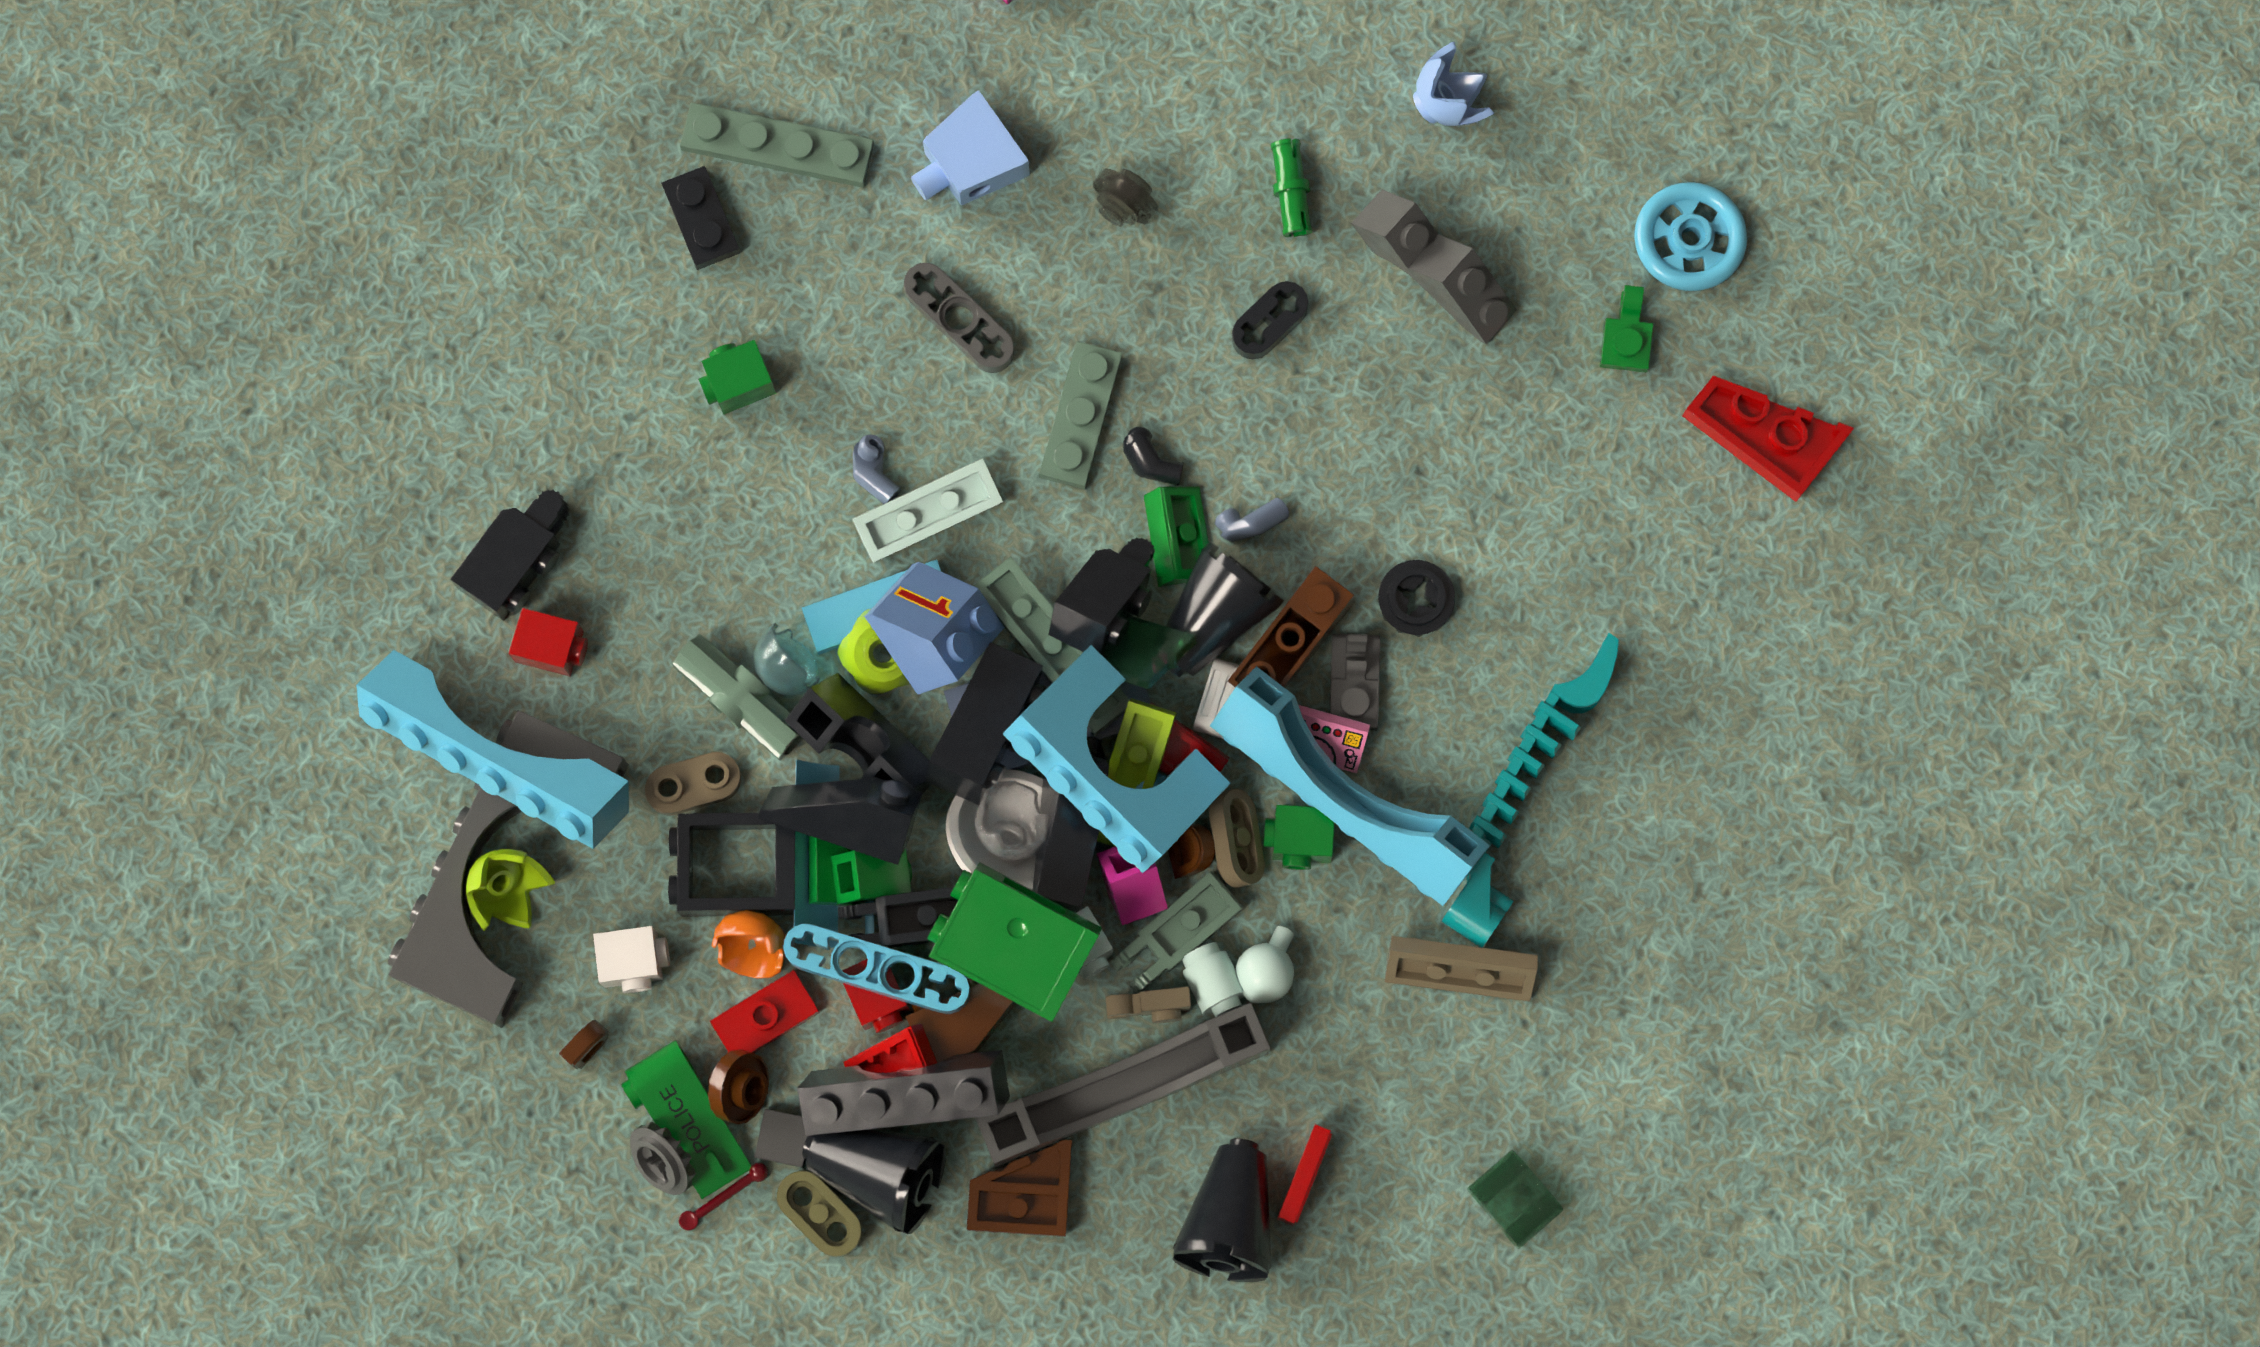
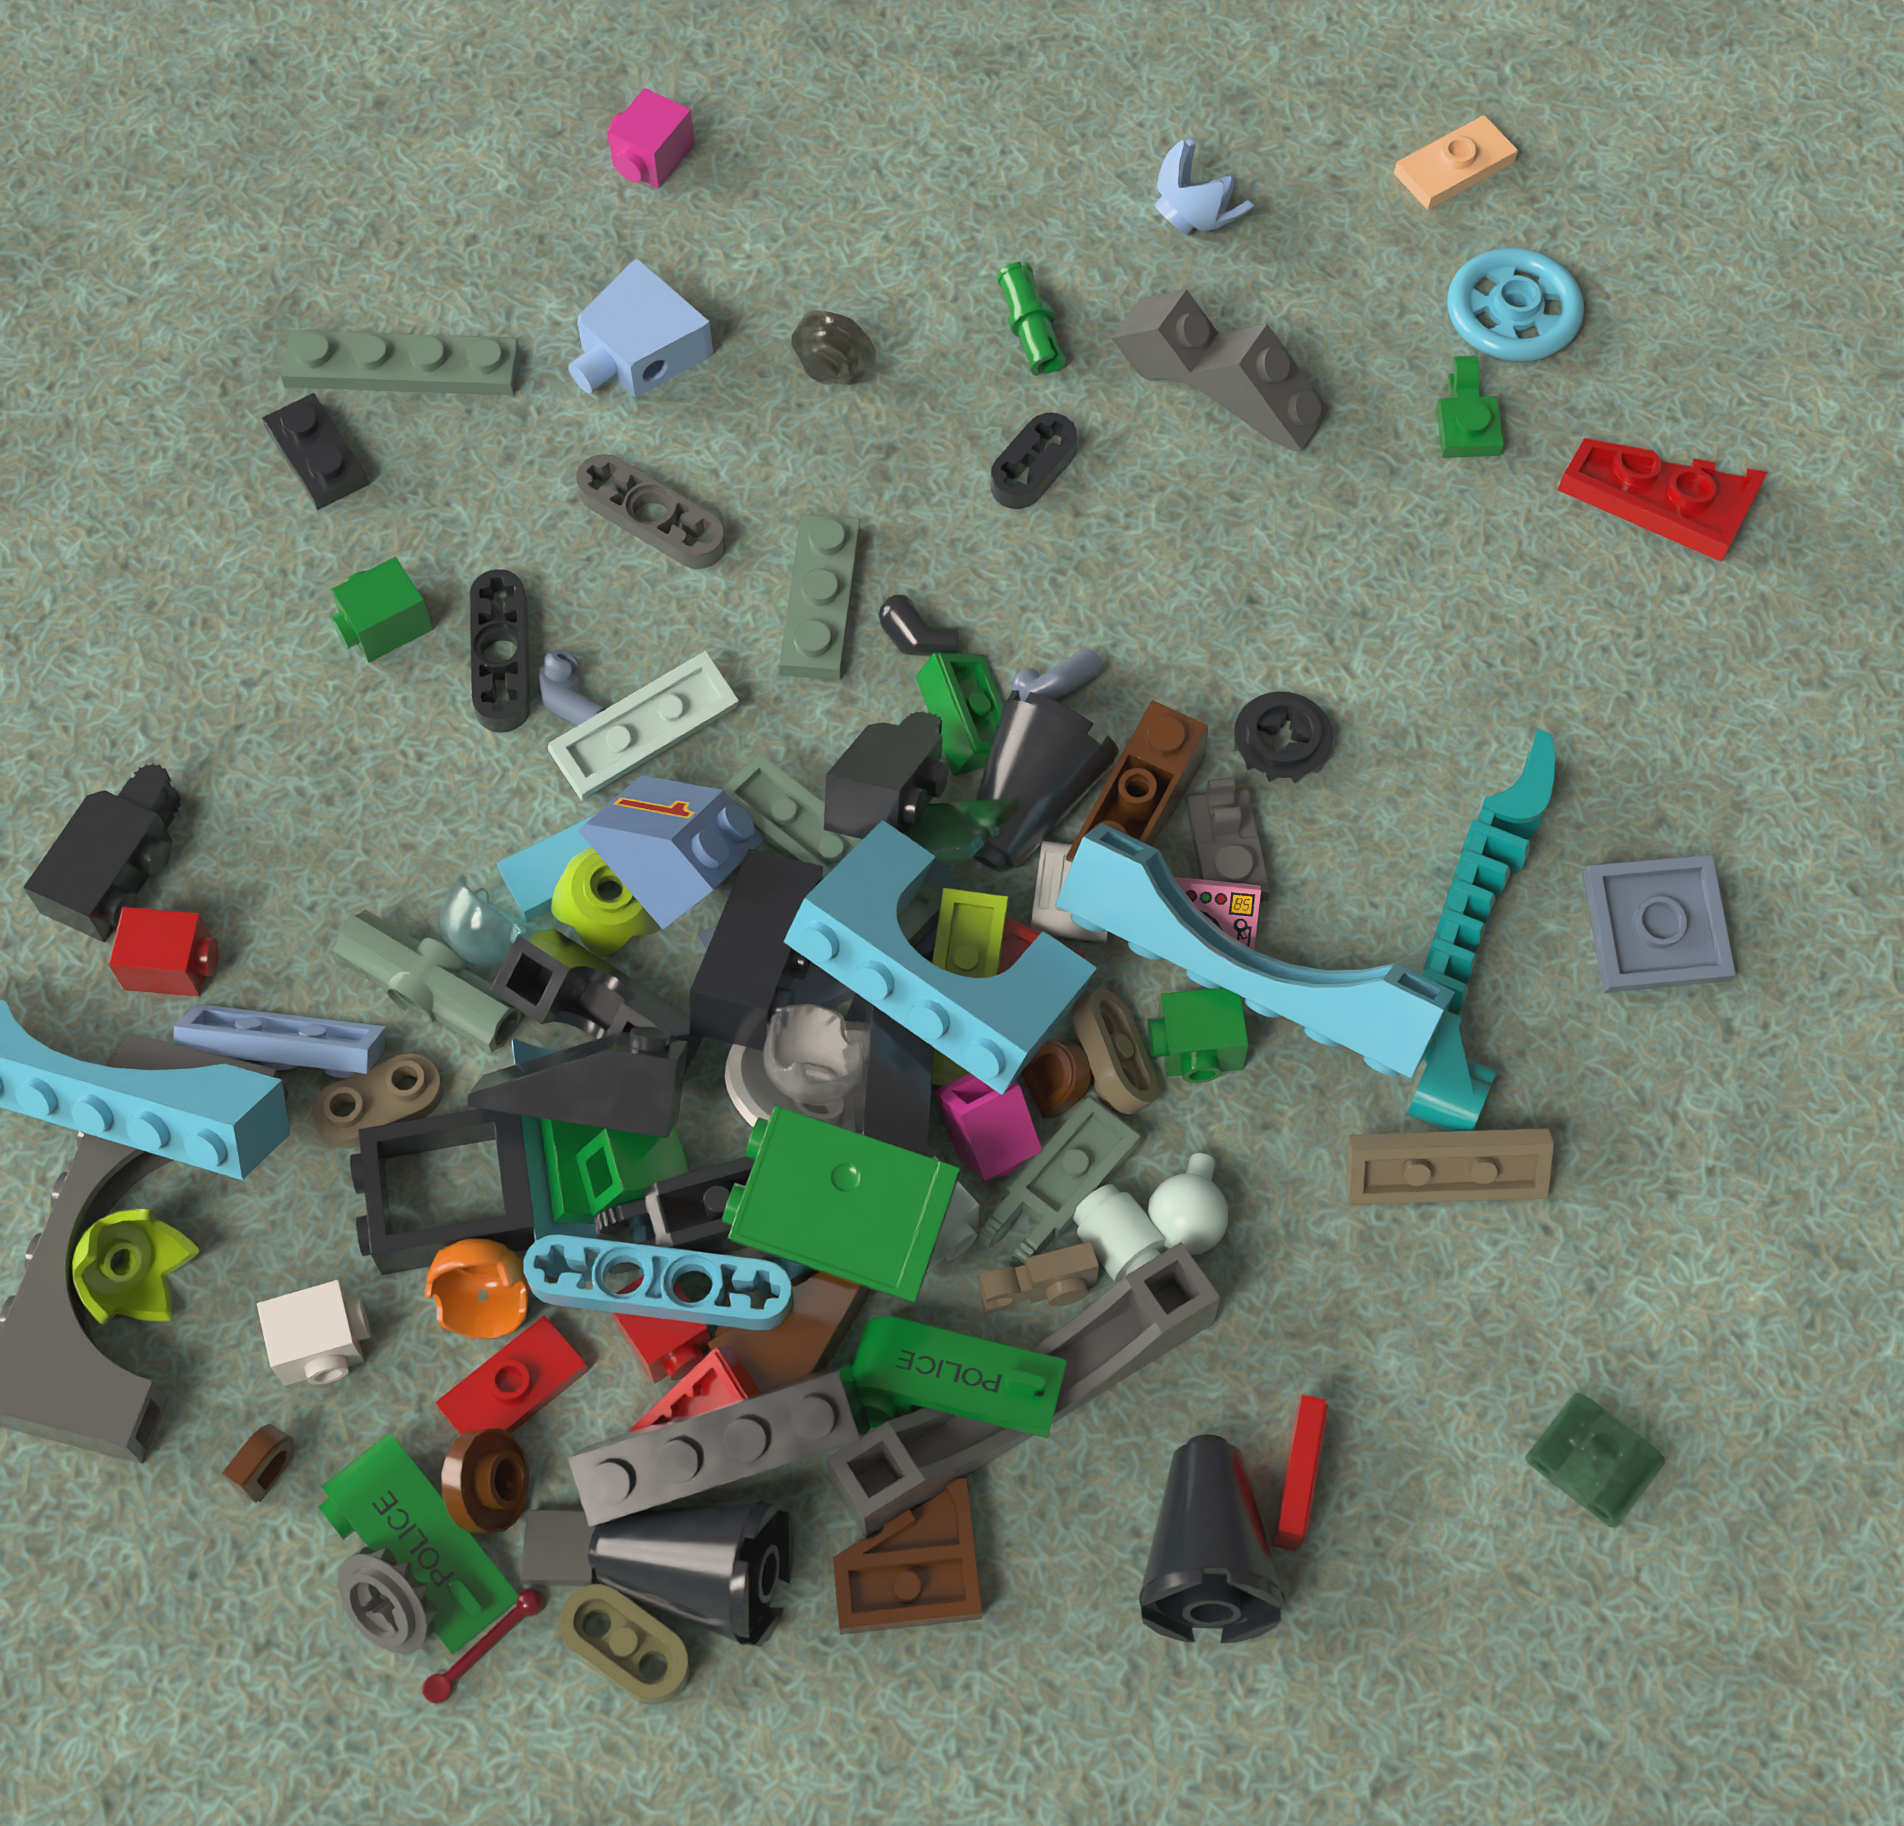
camera: 10 degrees left, 15 degrees down
(627, 726) = (282, 1039): none -> light blue plate
(834, 458) = (487, 630): none -> black beam
(1075, 1068) = (955, 1374): none -> green door
(1665, 802) = (1658, 923): none -> sand blue plate
(1675, 86) = (1455, 162): none -> light nougat plate

